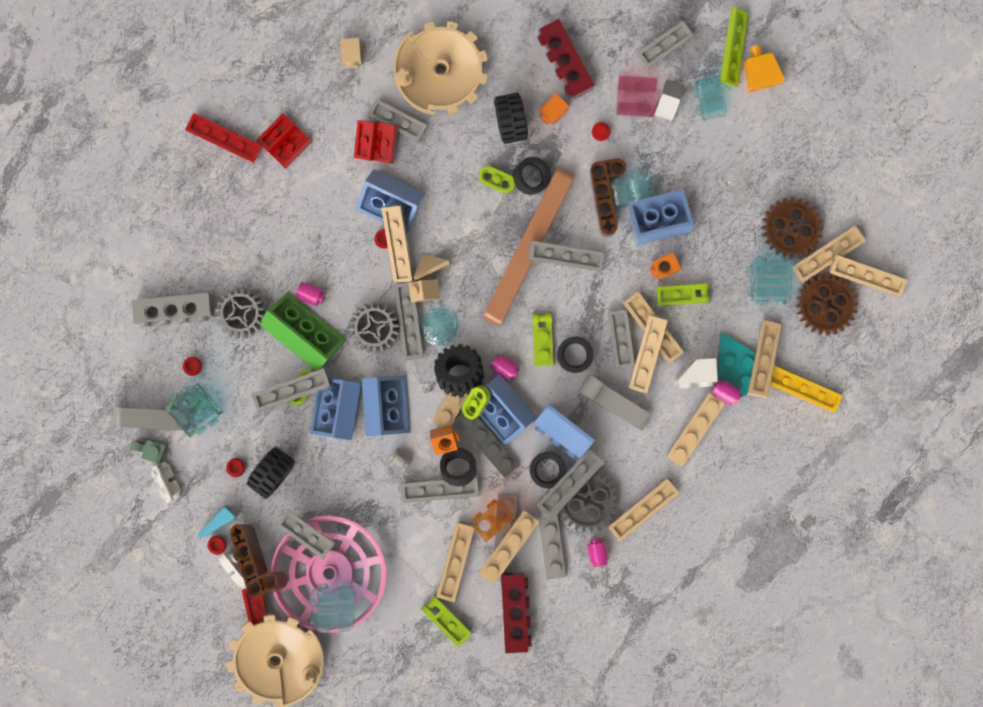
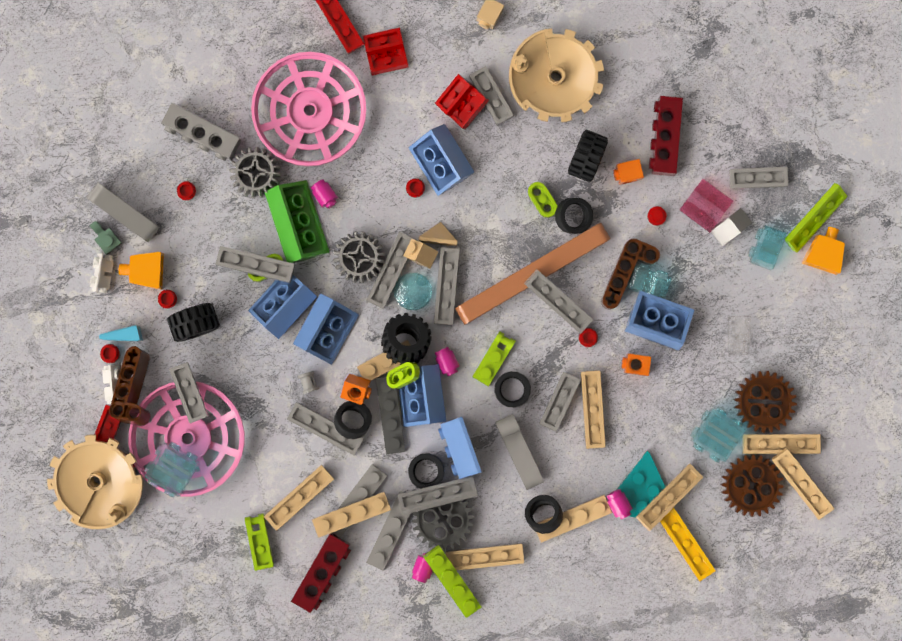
camera: 30 degrees right, 0 degrees up
(194, 410) = (163, 228): clear light blue brick -> none
(200, 455) = (145, 270): none -> light orange torso
(242, 222) = (308, 97): none -> bright pink dish
(397, 243) = (424, 199): tan plate -> none
(463, 304) = (446, 286): none -> light grey plate
(496, 524) = (353, 486): clear orange brick -> none
(610, 270) = (588, 337): none -> red plate
(629, 548) = (452, 581): none -> lime plate
(648, 353) = (574, 429): tan plate -> none
(656, 437) = (537, 502): none -> black tyre
(682, 294) = (635, 397): lime plate -> none
(698, 372) = (606, 471): white slope -> none

